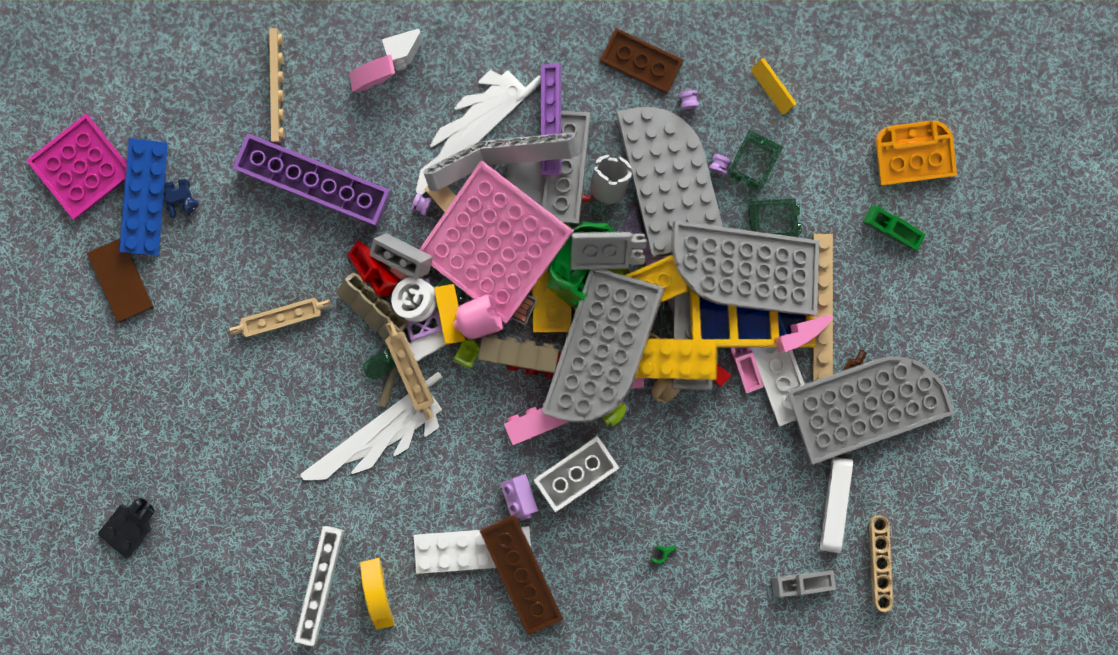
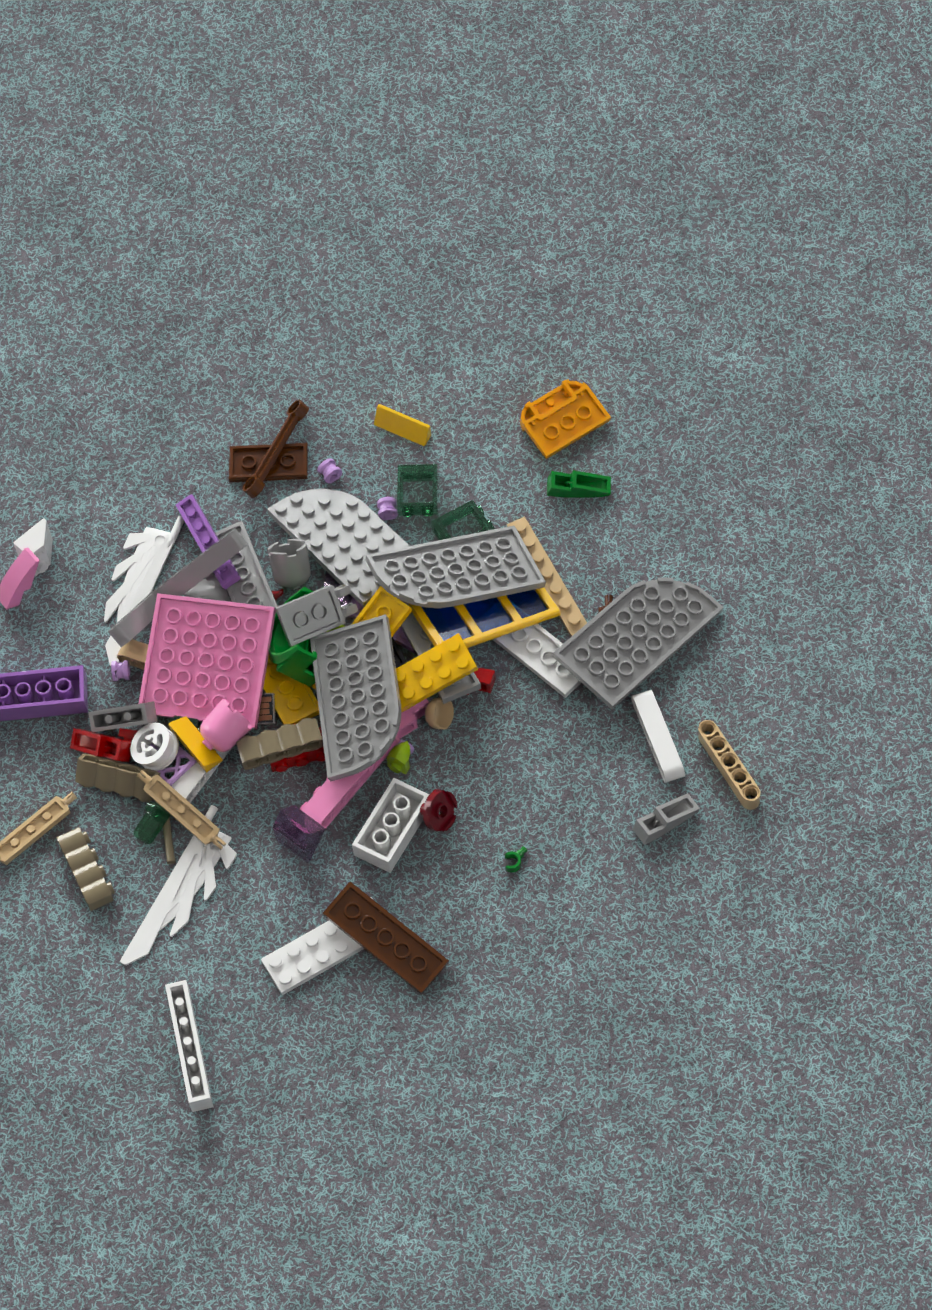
camera: 20 degrees left, 25 degrees down
(308, 377) = (85, 869): none -> dark tan brick
(376, 594) = (253, 1027): yellow arch -> none
(467, 353) = (230, 773): lime plate -> none
(497, 441) = (298, 832): none -> clear purple slope
(519, 497) = (344, 869): lavender brick -> none
(621, 482) = (430, 810): none -> dark red plate
(689, 26) = (255, 484): none -> reddish brown piece
(747, 368) = (503, 659): bright pink slope -> none
(802, 333) = (538, 602): bright pink slope -> none

